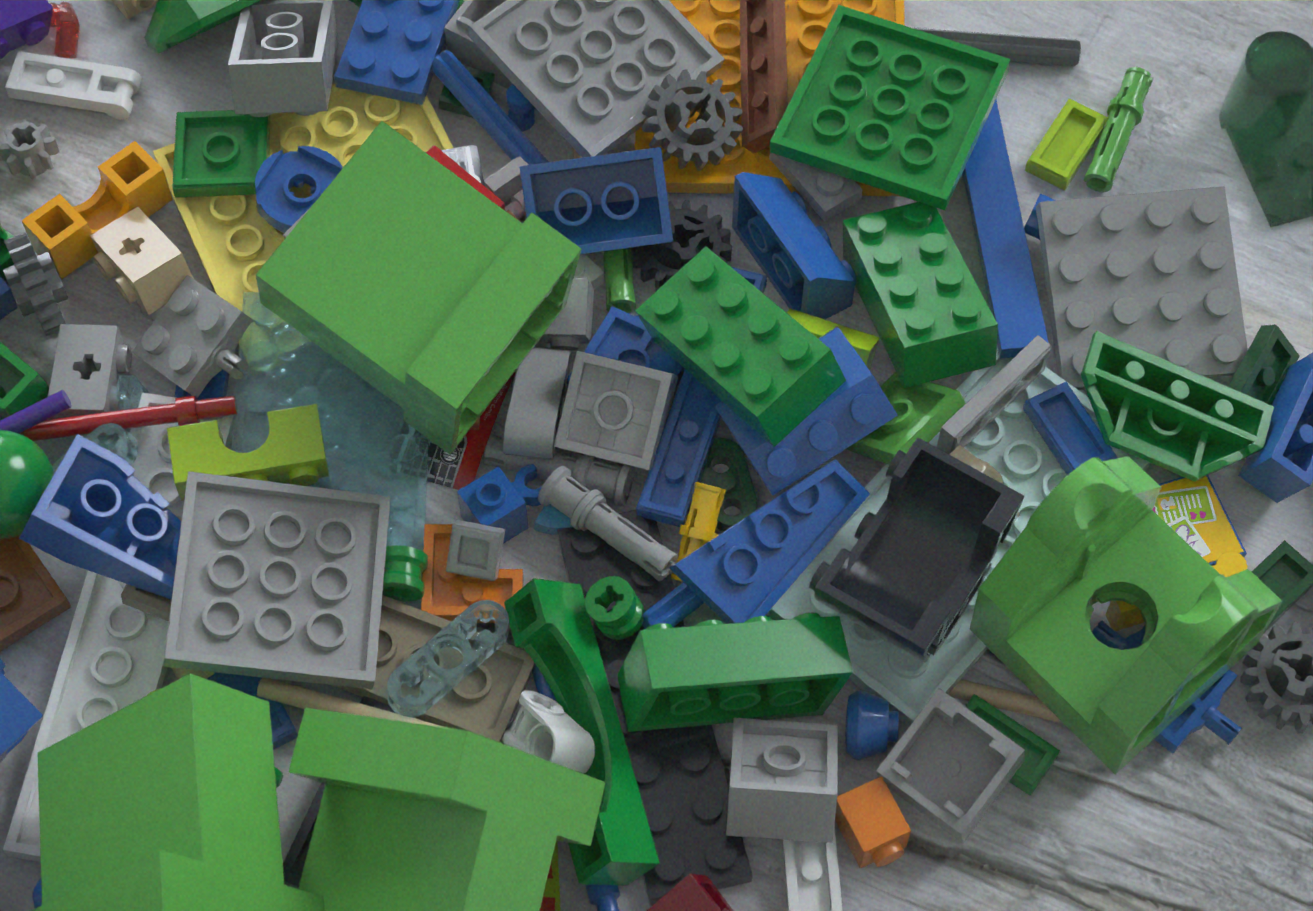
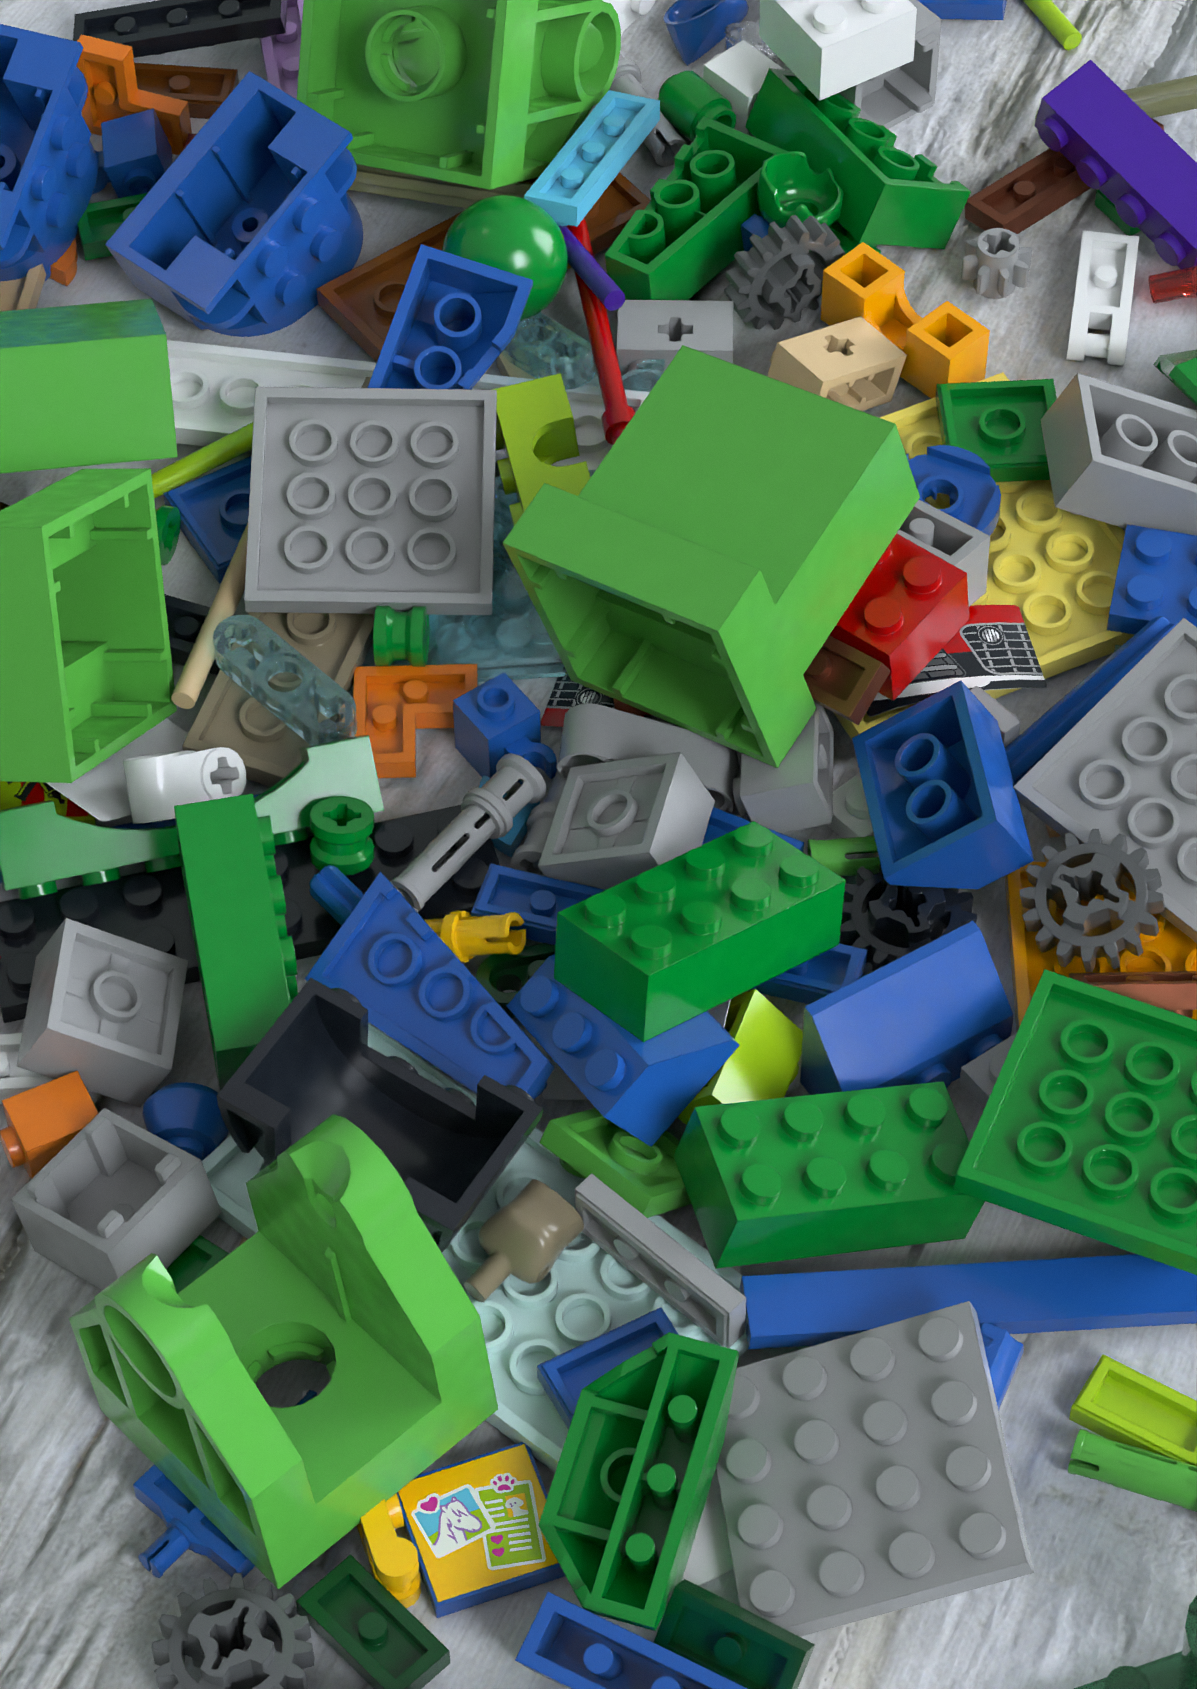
camera: 90 degrees right, 10 degrees down
(475, 550) = (426, 698): light grey tile -> none

